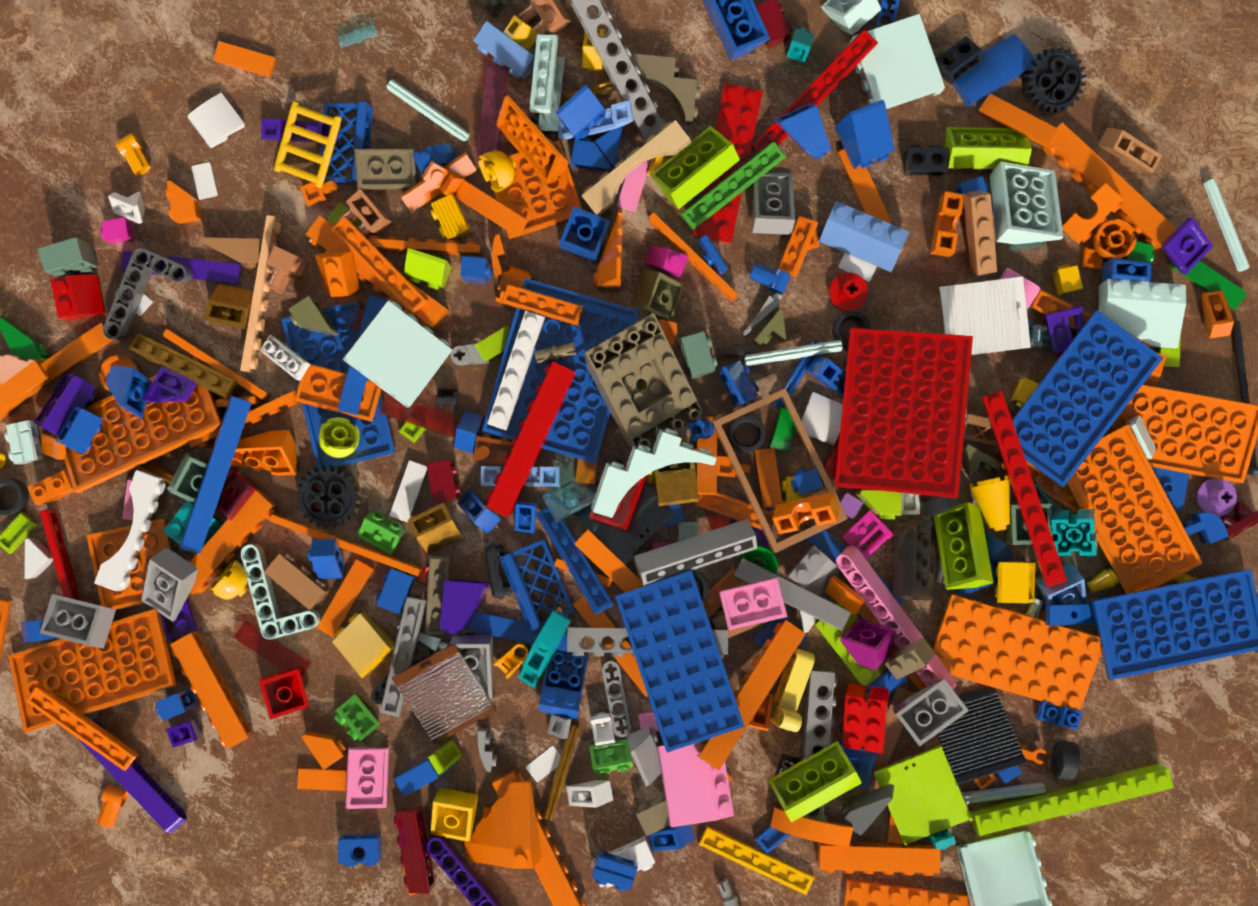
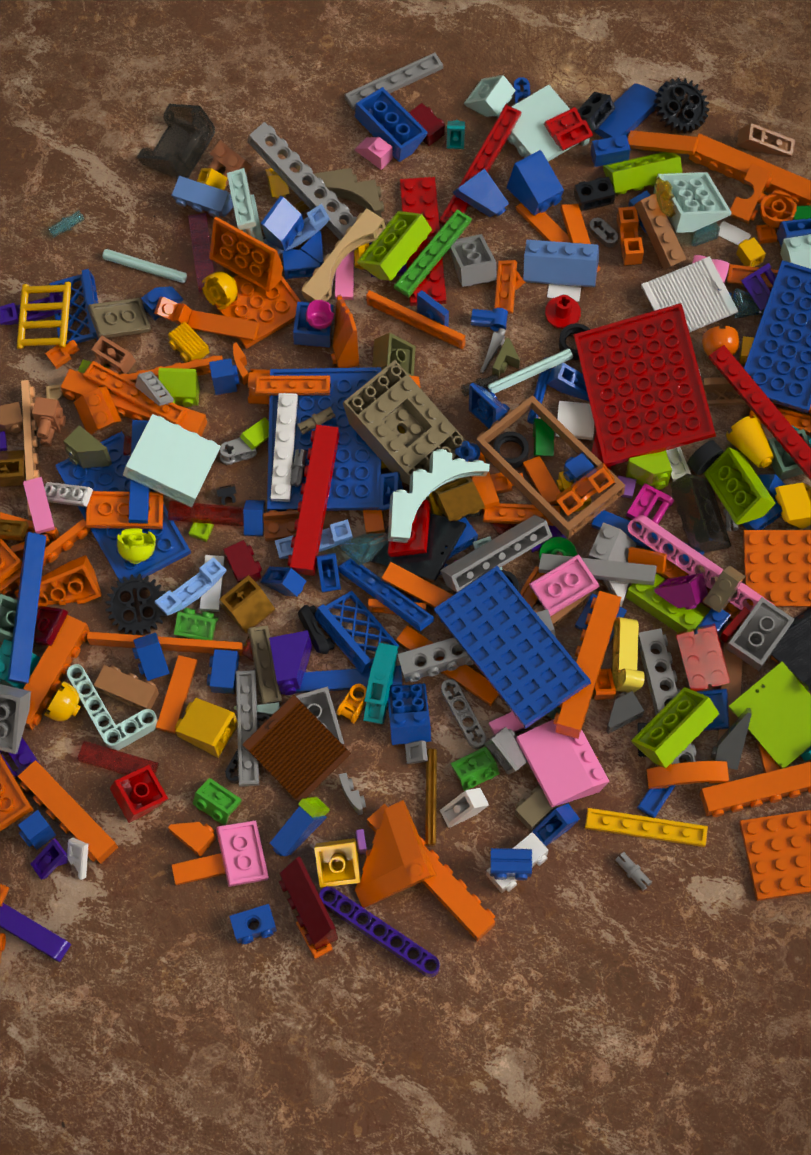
camera: 15 degrees left, 20 degrees down
(211, 736) = (77, 855): none -> white tile
(252, 364) = (39, 505): none -> bright pink tile
(298, 234) = (54, 392): none -> tan tile
(383, 497) = (192, 589): none -> light blue slope
(396, 257) = (153, 388): none -> light grey slope
(424, 191) = (161, 327): tile -> none
(481, 800) = (360, 839): none -> medium lavender tile
(523, 399) = (298, 467): none -> flat silver axle
(544, 764) = (413, 794): white sticker -> none
(591, 233) = (319, 314): none -> dark pink hair
(602, 728) = (458, 742): white bracket -> none
(611, 449) = (388, 484): none -> blue slope
(666, 260) = (396, 324): dark pink slope -> none
(697, 355) = (445, 393): sand green brick -> none
(708, 40) = (375, 151): none -> bright pink slope
(770, 743) = (624, 711): none -> dark grey slope
(893, 195) = (574, 224): none -> orange tile
(908, 690) = (734, 625): none -> red tile
(922, 78) = (568, 129): none -> red slope
(925, 207) = (603, 232): none -> flat silver beam
(959, 113) = (610, 150): none -> blue brick
(974, 457) = (723, 414): olive slope -> none
(995, 378) = (716, 338): none -> orange cylinder
(998, 196) = (664, 197): none -> clear yellow slope
(1059, 251) = (732, 233): none -> white sticker

